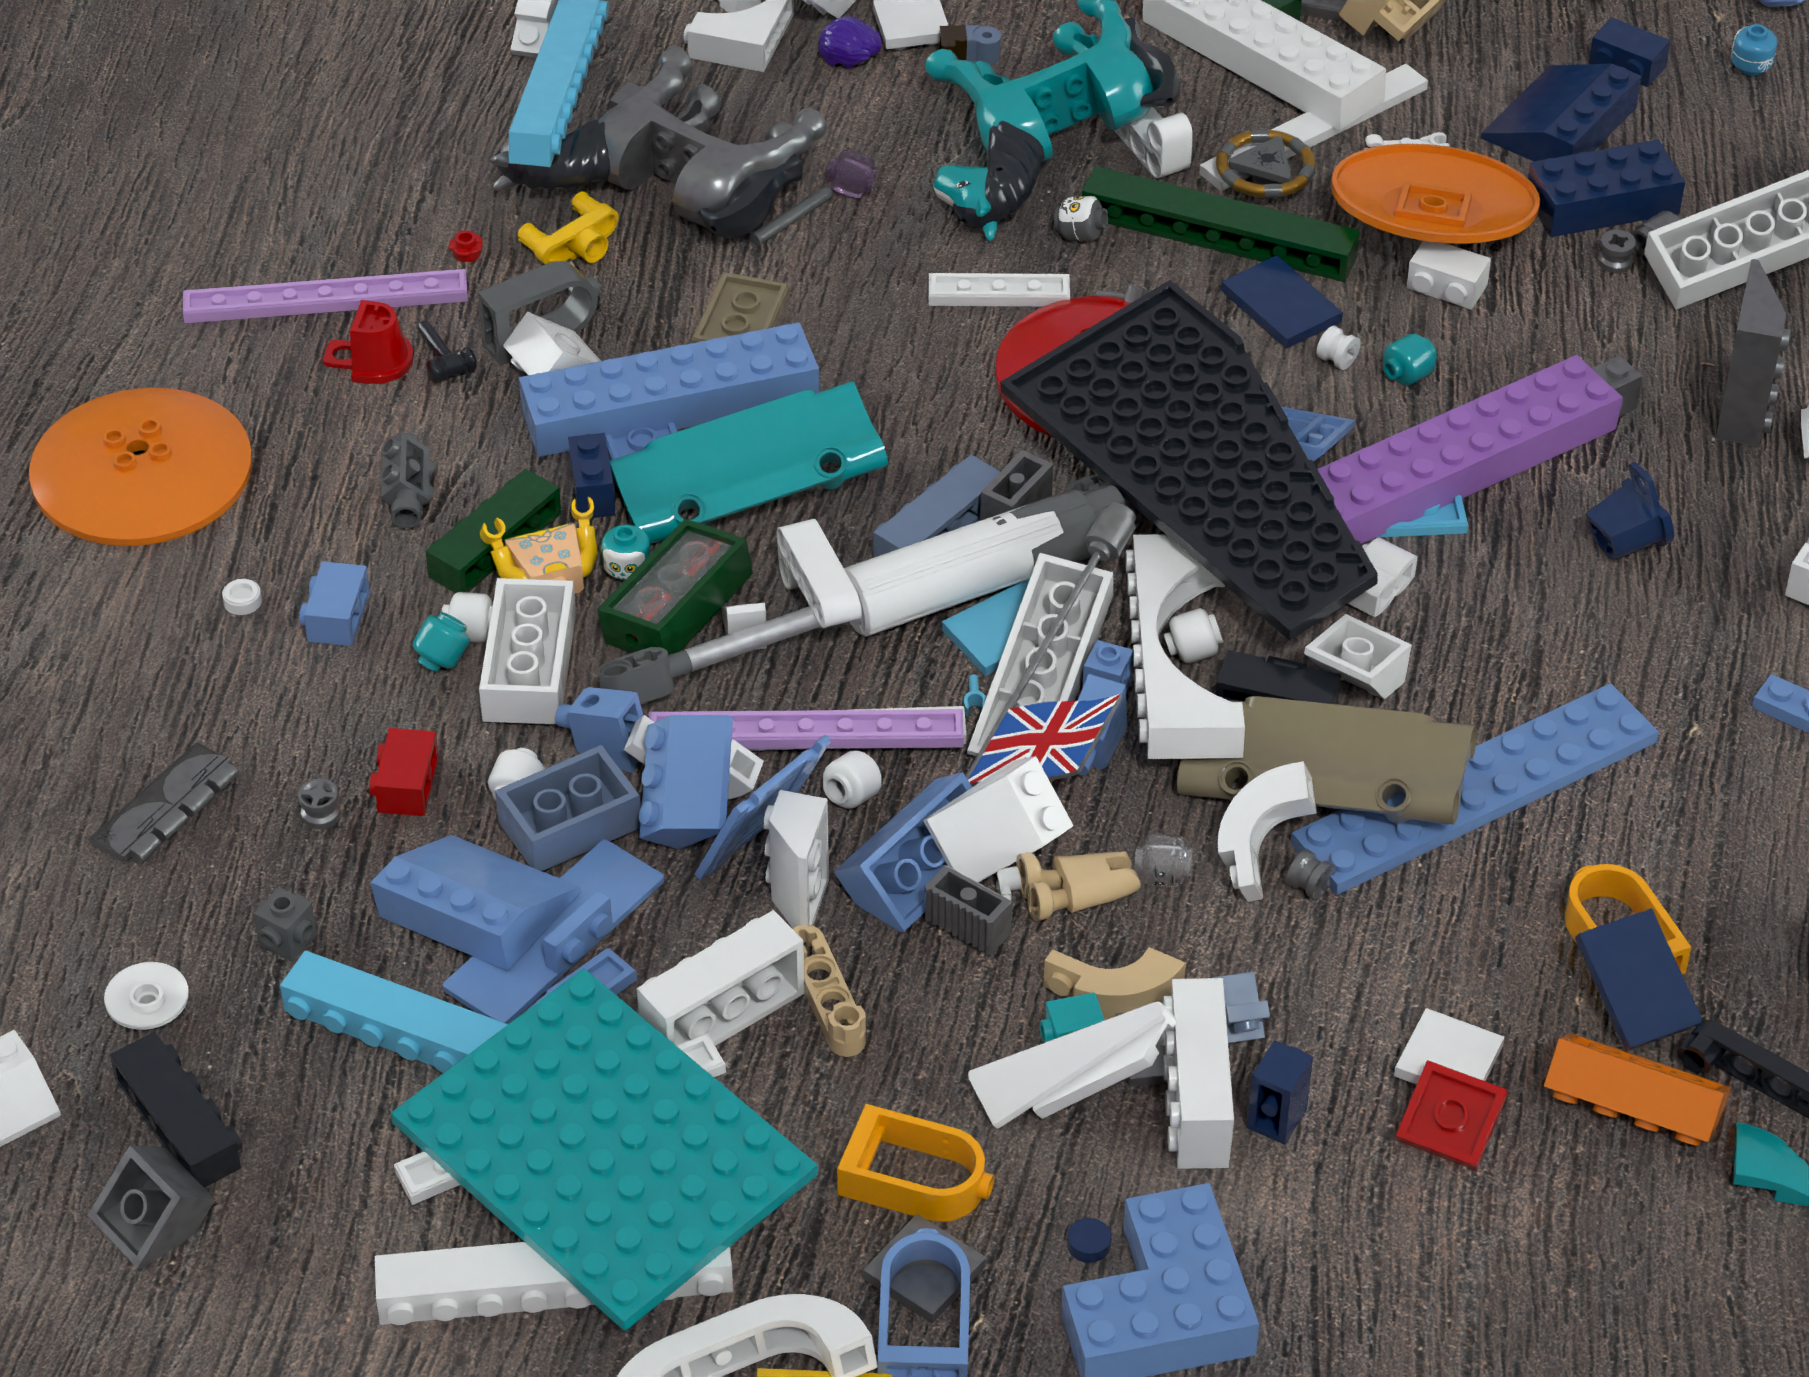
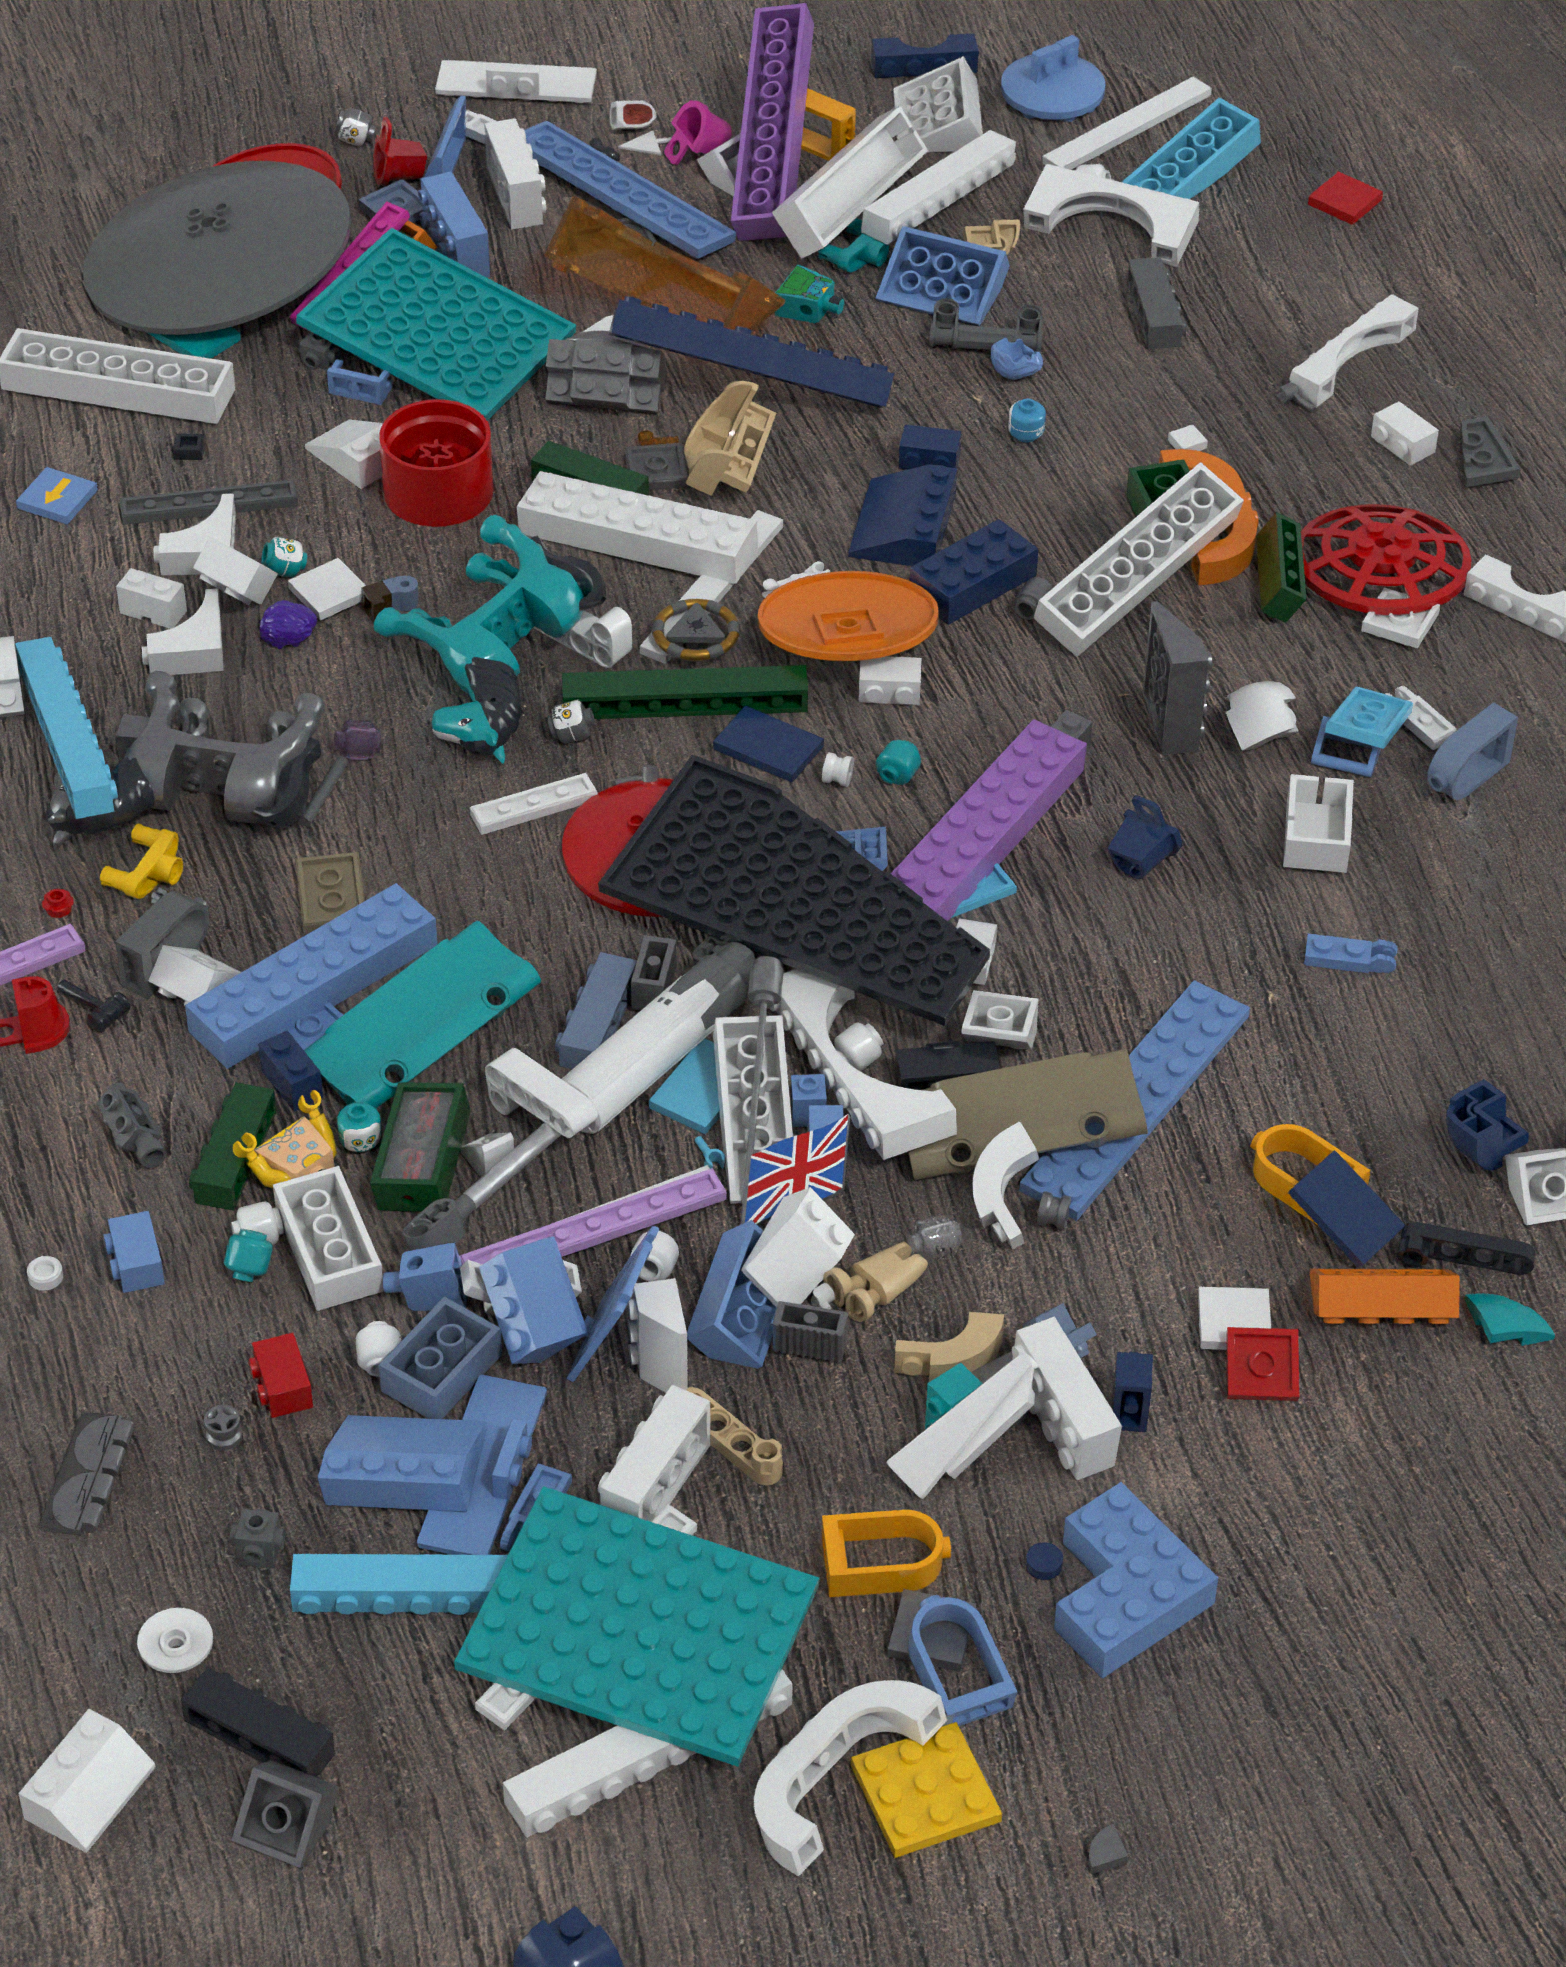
camera: 25 degrees left, 0 degrees up
(1616, 251) = (1009, 622): flat silver wheel -> none

